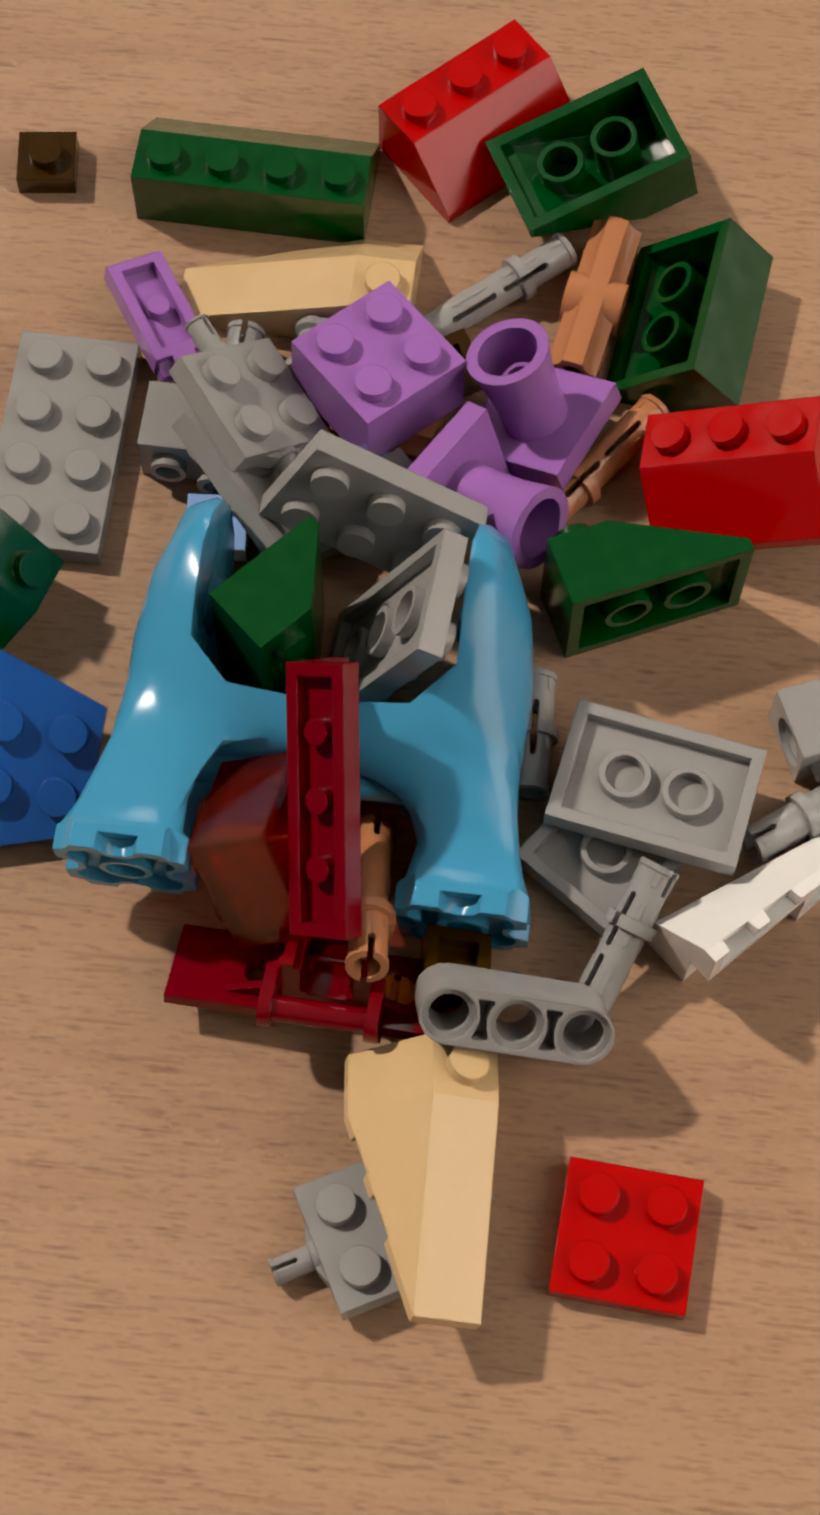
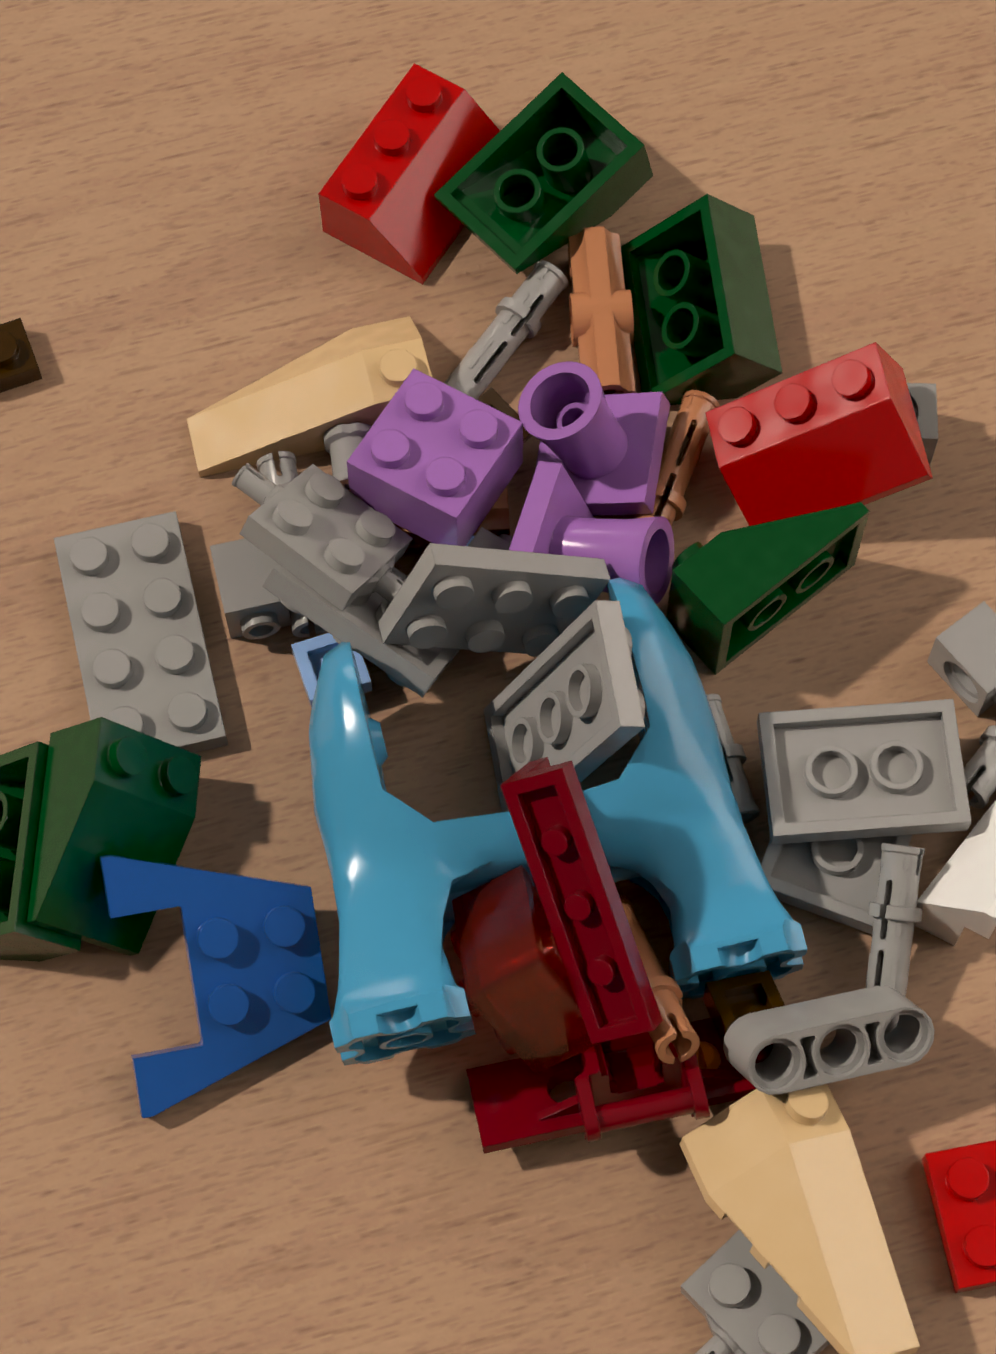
camera: 20 degrees left, 0 degrees up
(153, 309) = (186, 478): medium lavender hinge -> none
(254, 180) = (220, 305): dark green slope -> none
(272, 611) = (444, 742): dark green slope -> none

